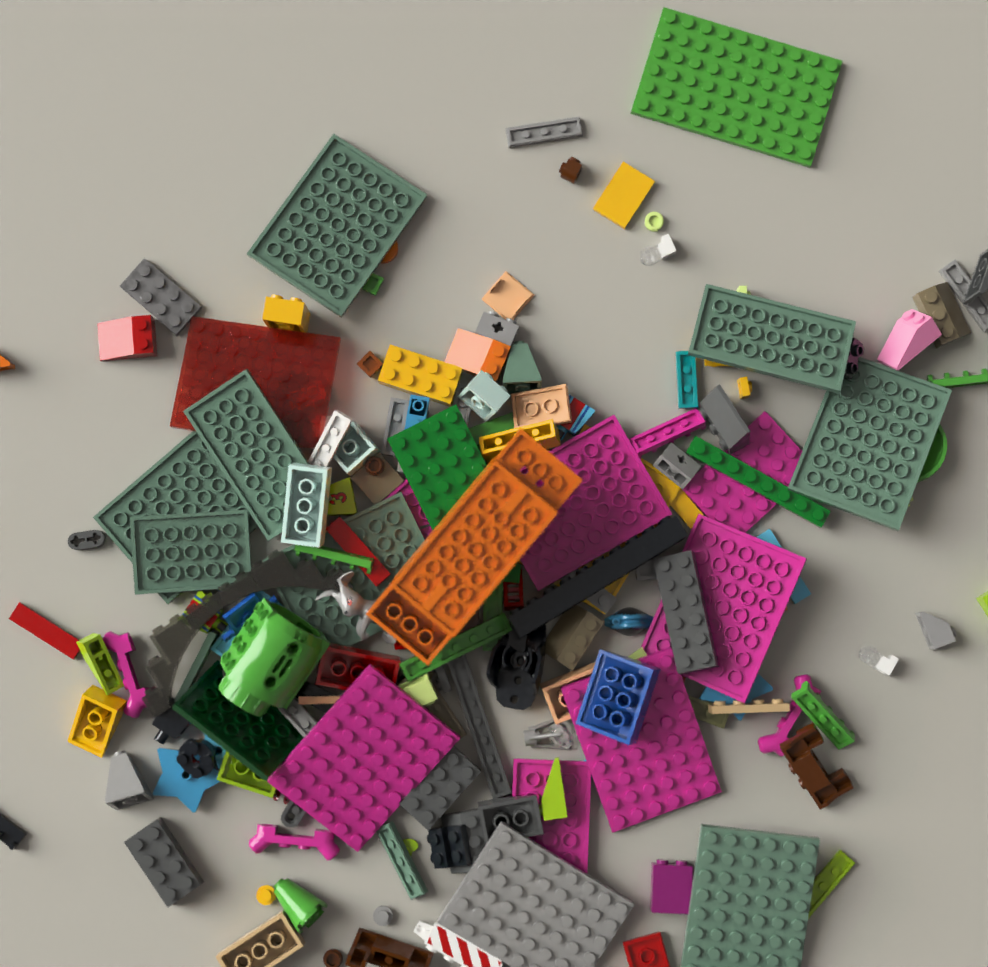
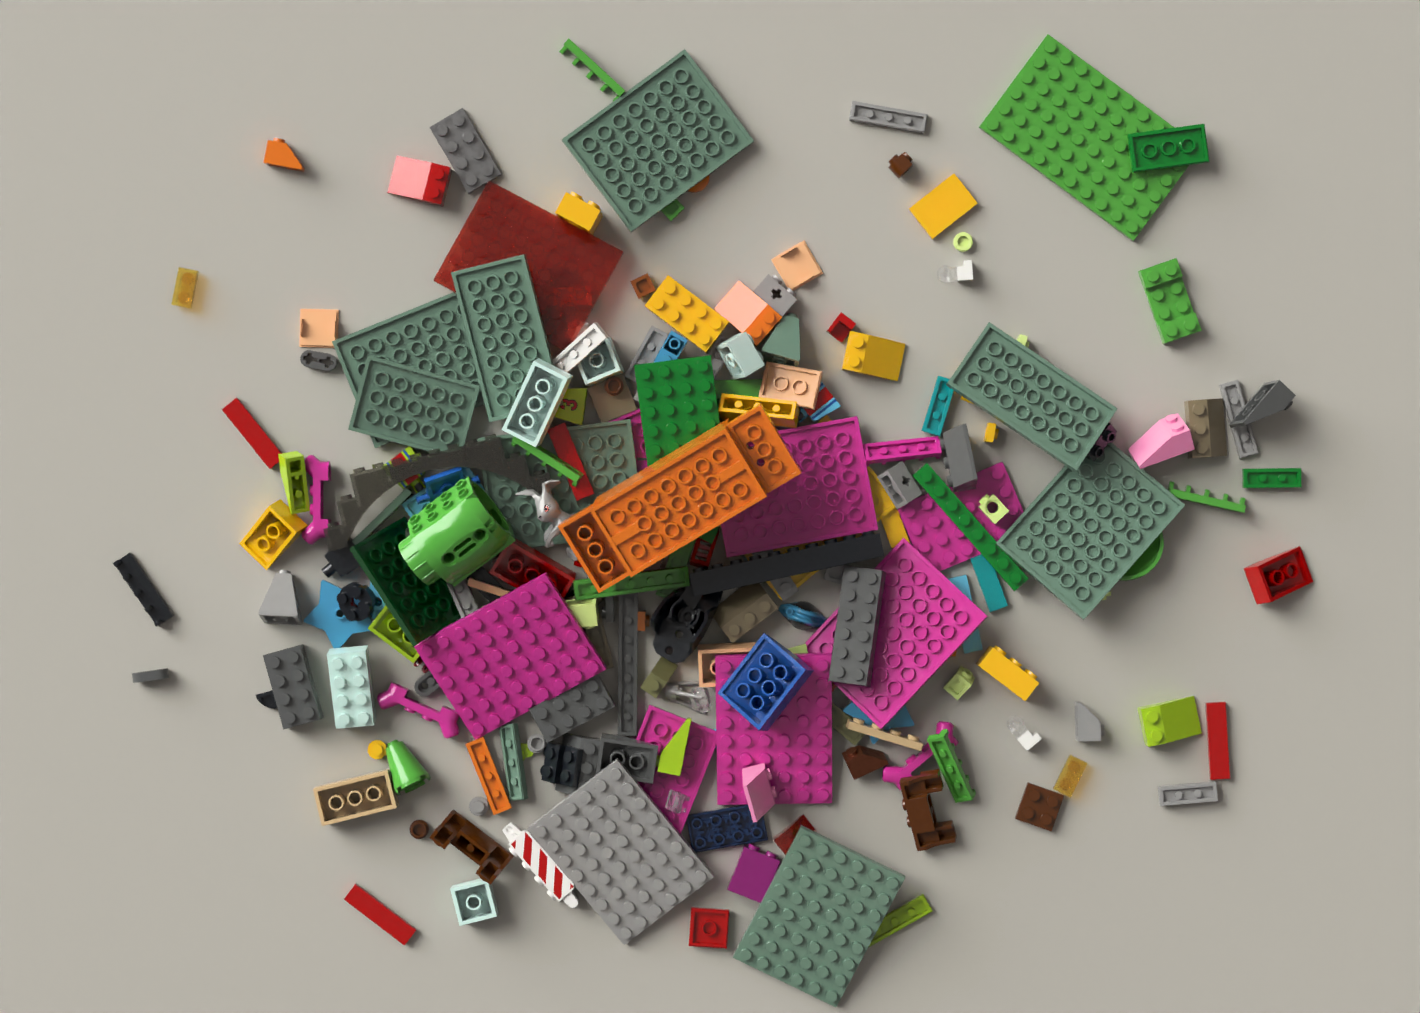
camera: 20 degrees right, 5 degrees up
(22, 900) = (150, 675): none -> dark grey beam
(76, 509) = (318, 327): none -> light nougat piece
(143, 883) = (267, 699): none -> black tile
(220, 842) = (351, 687): none -> light aqua brick
(254, 179) = (593, 67): none -> bright green hinge
(382, 882) = (488, 775): none -> orange plate
(418, 834) = (536, 743): none -> light grey plate
(479, 679) = (643, 620): none -> dark orange plate
(513, 728) = (658, 677): none -> olive slope
(569, 338) = (841, 327): none -> red panel
(571, 843) = (675, 801): none -> clear tile
(608, 354) = (873, 356): none -> yellow slope
(629, 851) = (724, 828): none -> dark blue tile
(648, 804) = (758, 790): none -> bright pink slope
(690, 839) = (787, 835): none -> clear red slope
(737, 740) = (863, 760): none -> copper slope
(781, 456) = (998, 514): none -> yellowish green brick
(793, 529) = (988, 583): none -> teal tile
(801, 633) = (959, 682): none -> yellowish green bracket
(812, 70) = (1168, 148): none -> green tile
(844, 606) = (1008, 672): none -> yellow brick
(864, 209) = (1169, 301): none -> bright green piece
(919, 725) = (1039, 806): none -> reddish brown plate
(937, 685) = (1070, 775): none -> clear yellow plate

